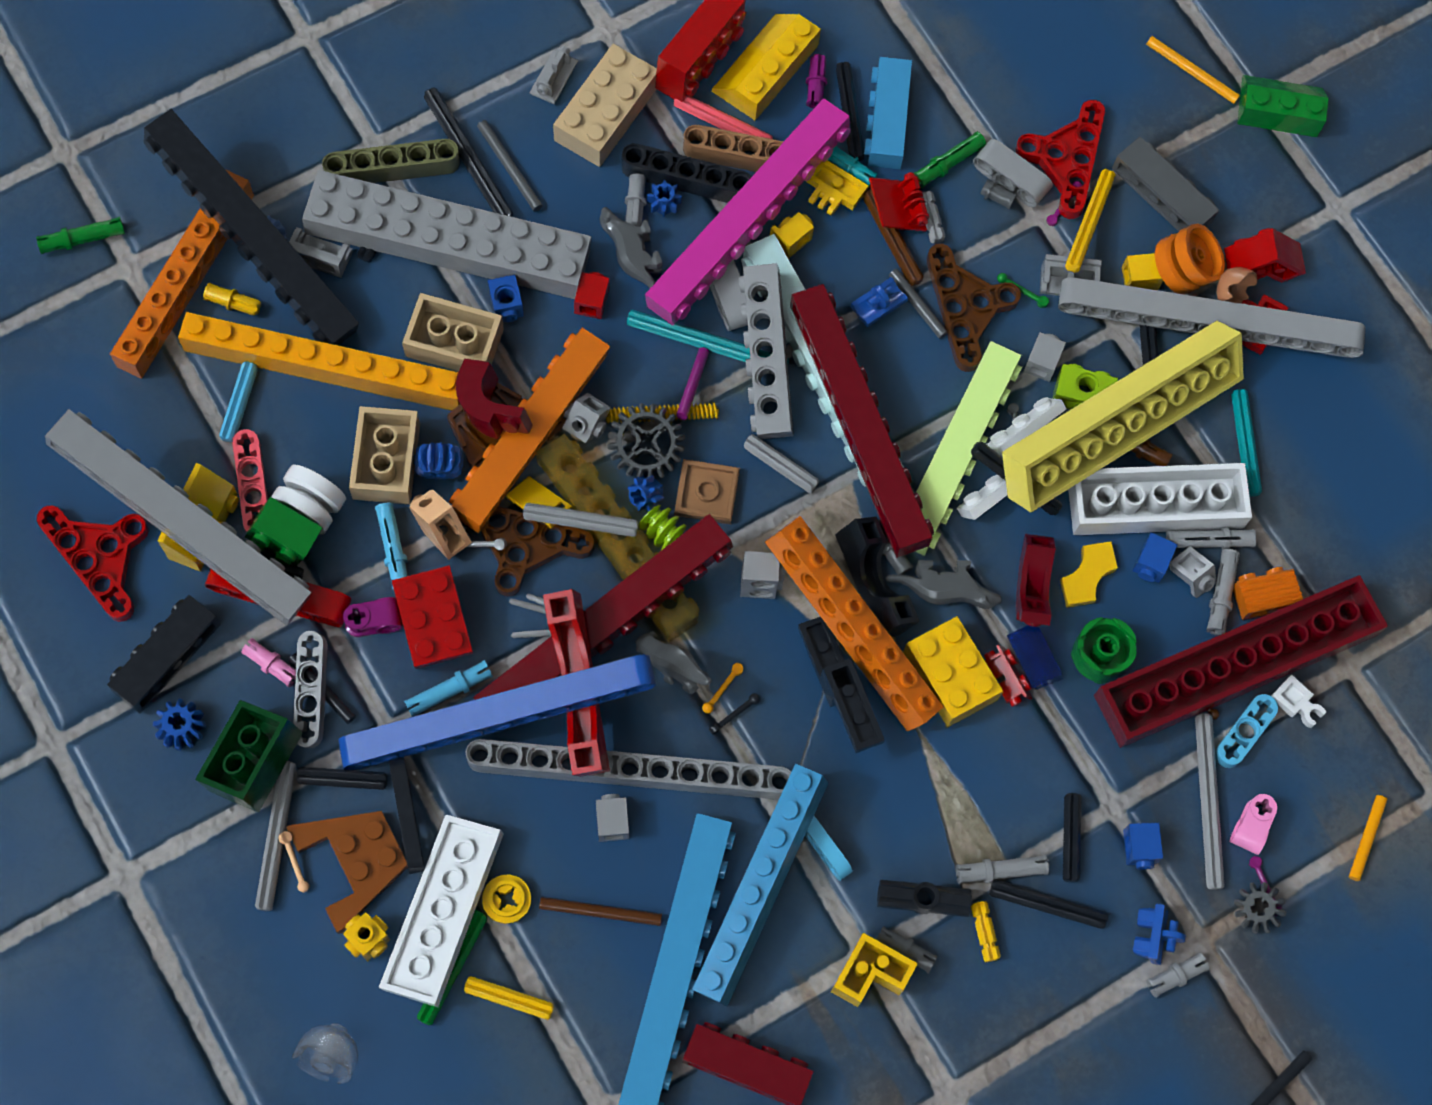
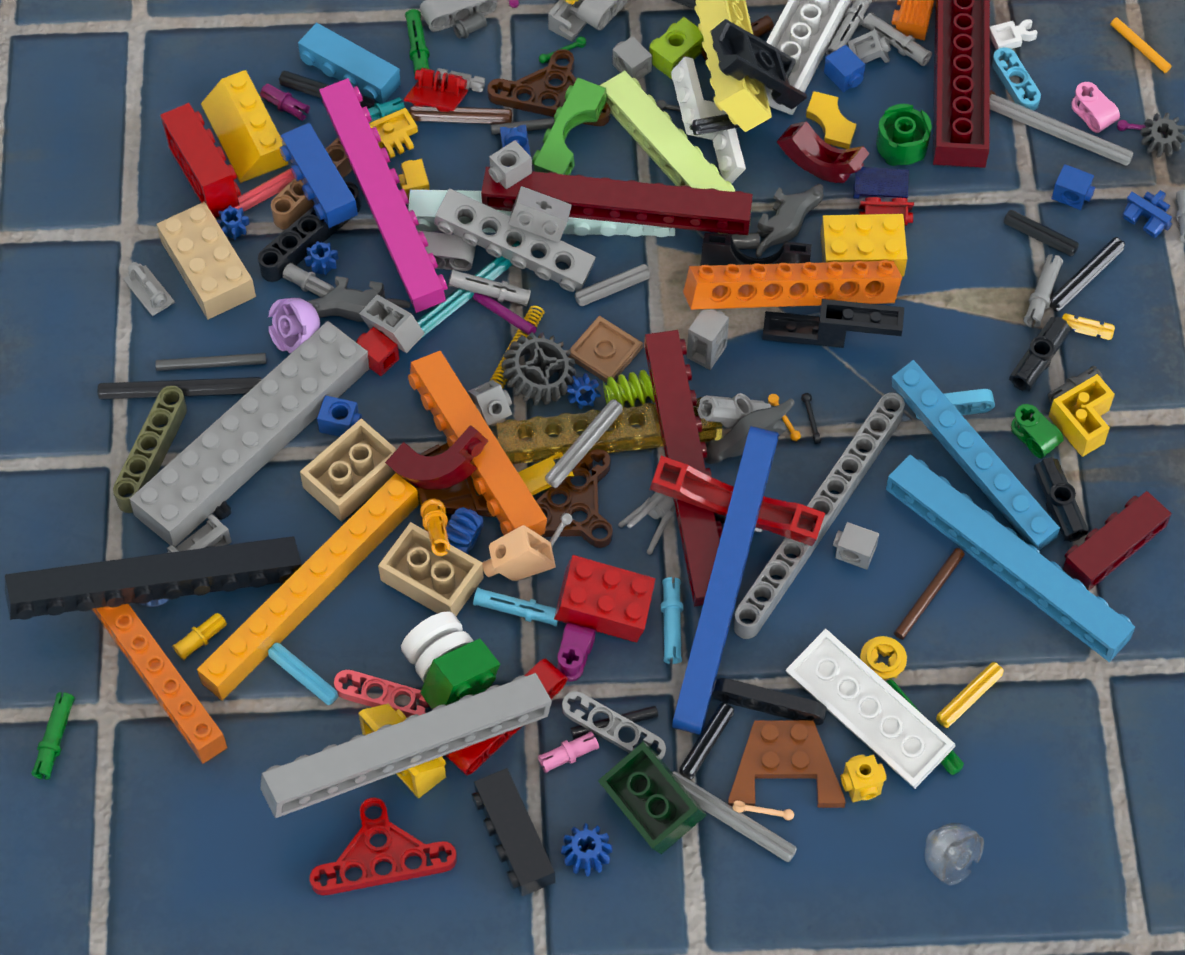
camera: 55 degrees left, 10 degrees down
(426, 432) = (435, 524): none -> light orange pin
(577, 211) = (292, 322): none -> lavender cylinder
(620, 291) = (393, 322): none -> light grey brick
(658, 113) = (233, 222): none -> blue gear
(678, 627) = (728, 410): none -> light grey piece
(720, 388) = (491, 288): none -> light grey pin
(737, 147) = (319, 175): none -> blue brick
(780, 977) = (1067, 512): none -> black piece
(797, 356) = (540, 214): none -> light grey brick
(830, 313) = (518, 161): none -> light grey brick
(830, 937) = (1035, 432): none -> green piece
(957, 334) = (582, 105): none -> bright green arch
(1071, 465) = (746, 54): none -> black piece

